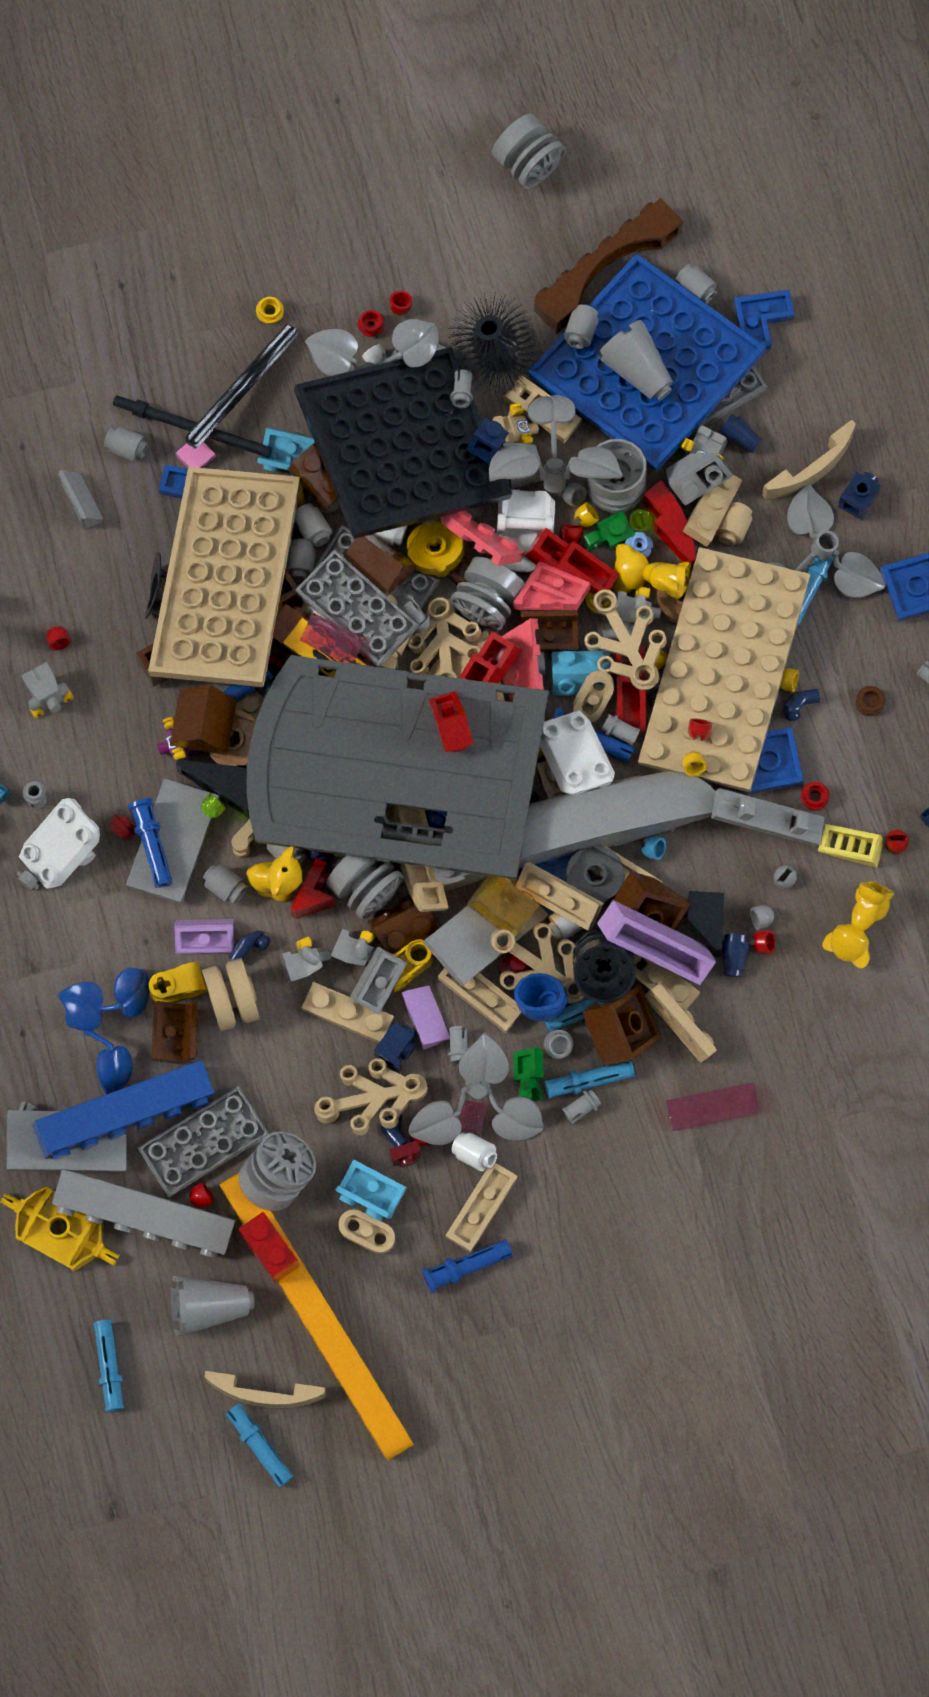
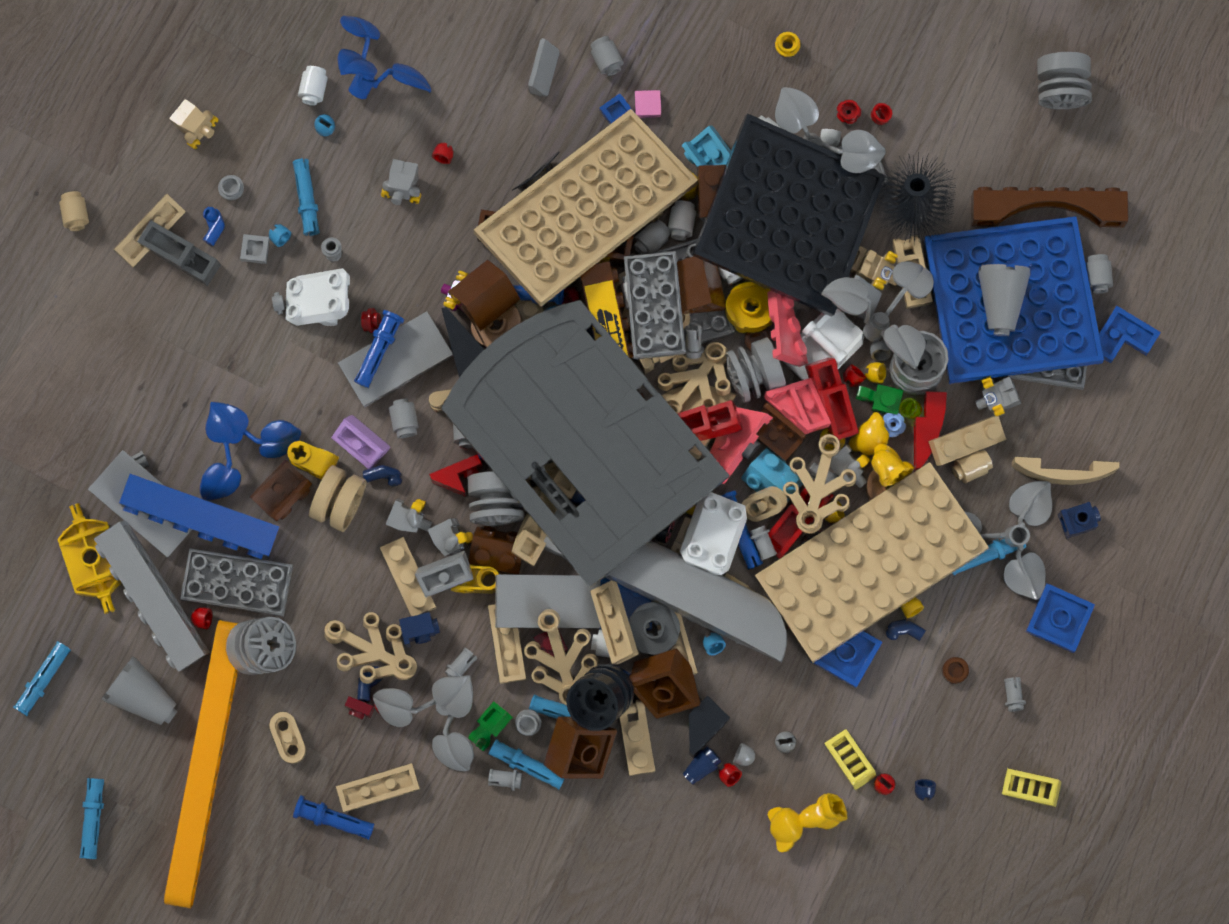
camera: 40 degrees right, 5 degrees up
(143, 409) = (640, 42): black bar -> none
(212, 806) = (440, 358): clear neon green hinge -> none
(241, 386) = (719, 81): black axle -> none
(269, 1247) = (208, 693): red brick -> none
(276, 878) = (438, 443): yellow animal -> none
(302, 1395) = (106, 761): tan slope -> none
(332, 639) = (617, 313): clear pink plate -> none
(371, 1190) = (313, 712): medium azure bracket -> none
(425, 1016) = (457, 625): lavender slope -> none
(451, 722) = (641, 440): red slope -> none
(461, 395) = (863, 212): light grey pin -> none
(472, 1117) = (425, 721): clear pink plate -> none
(474, 1151) = (405, 746): white brick -> none
(488, 904) = (571, 610): clear yellow brick -> none
(492, 435) = (852, 262): dark blue brick -> none
(540, 997) = (540, 681): blue hat -> none
(581, 326) = (988, 237): light grey brick -> none
(656, 942) = (649, 712): lavender brick -> none
(681, 1022) = (621, 780): tan plate -> none
(697, 475) = (973, 410): light grey slope -> none
(697, 769) = (784, 608): yellow hinge -> none
(699, 727) = (814, 589): red hinge -> none
(712, 1106) = (594, 856): clear pink plate -> none
(740, 433) = (1034, 405): dark blue cone -> none
(767, 817) = (807, 691): light grey hinge -> none
(815, 787) = (862, 697): red plate -> none

